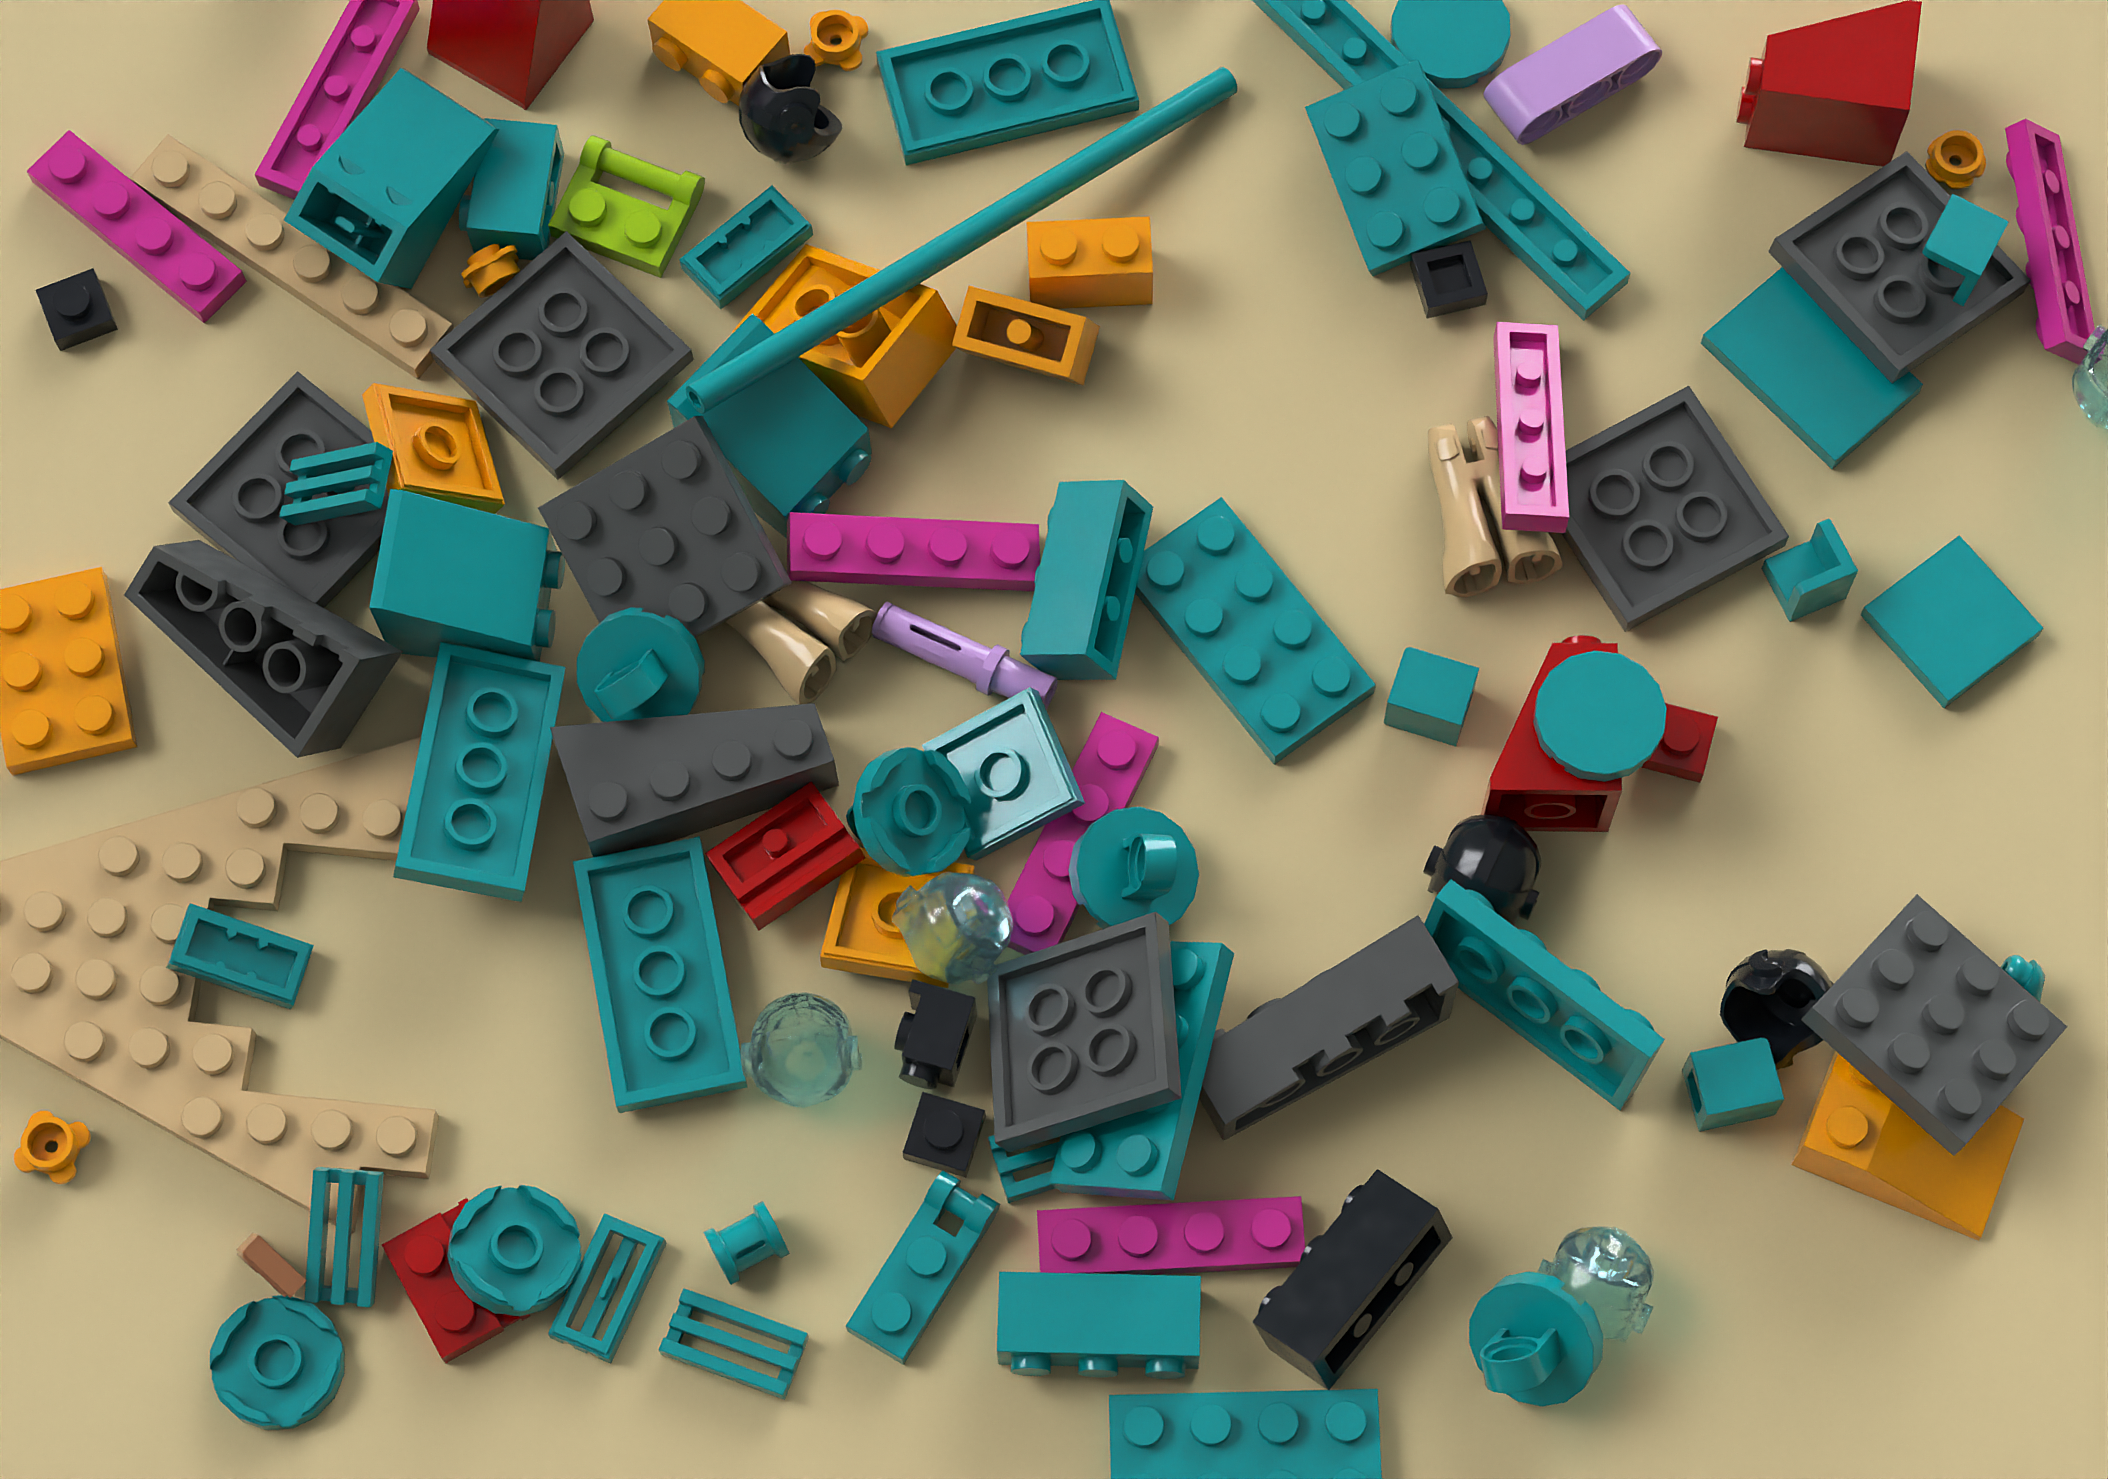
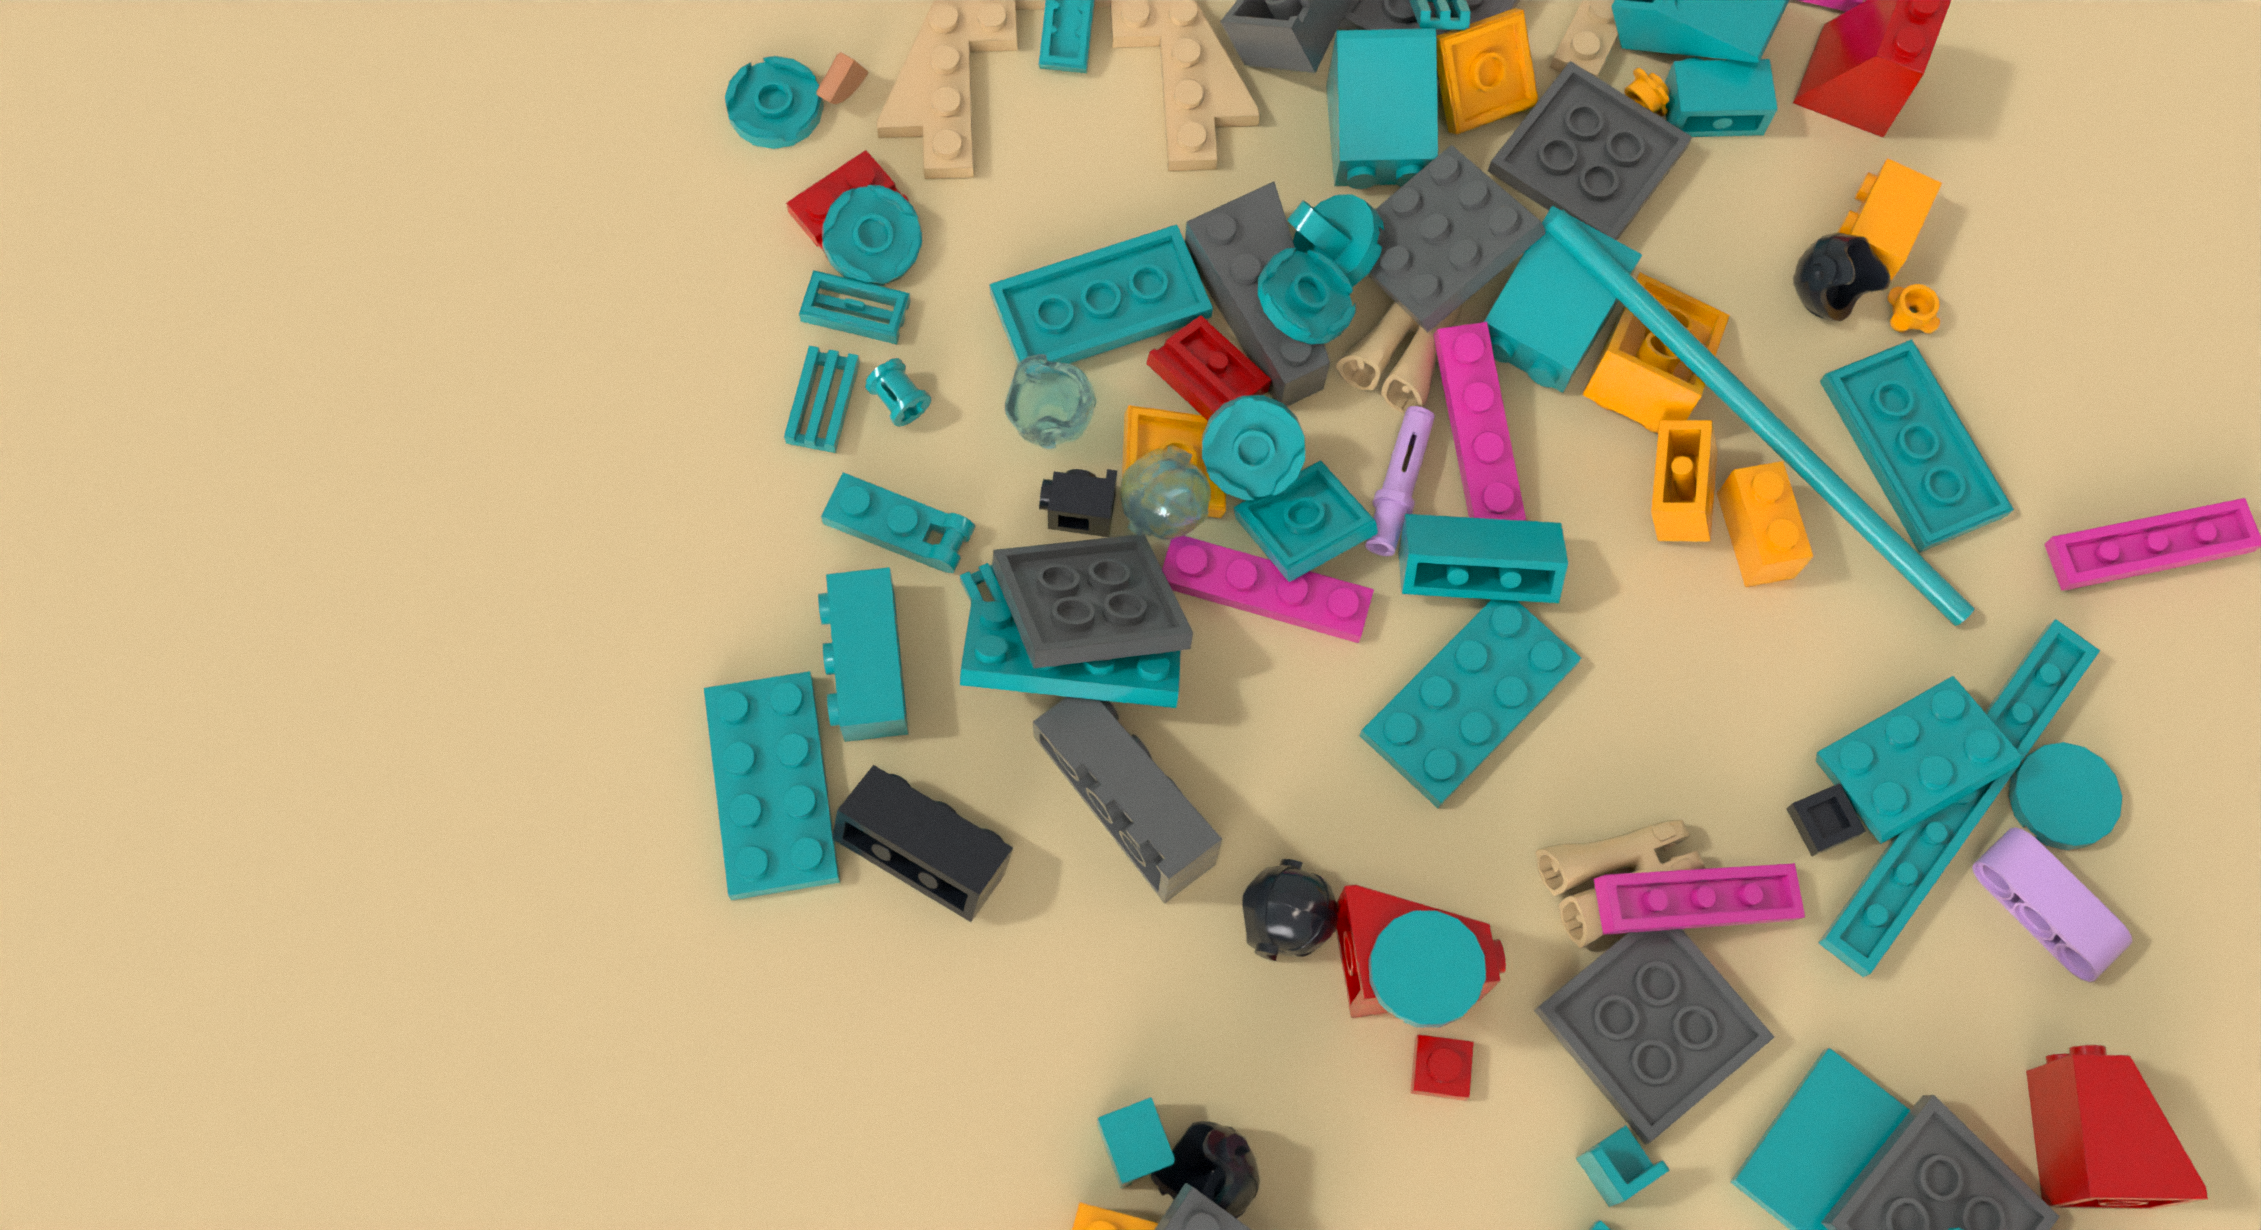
camera: 75 degrees right, 0 degrees up
(339, 1292) = (866, 114): teal tile -> none
(480, 772) = (1233, 145): teal plate -> none
(621, 224) = (1712, 177): lime plate -> none
(726, 712) = (1306, 296): none -> teal tile
(746, 247) = (1714, 269): teal plate -> none
(944, 1134) = (1005, 522): black plate -> none
(1133, 867) = (1240, 630): teal tile -> none
(1173, 1237) = (945, 705): dark pink plate -> none
(1431, 696) = (1438, 848): teal panel -> none
(1535, 1339) = (881, 990): teal tile -> none
(1541, 996) = (1174, 977): teal plate -> none
(1608, 1273) = (941, 1044): clear light blue cap -> none

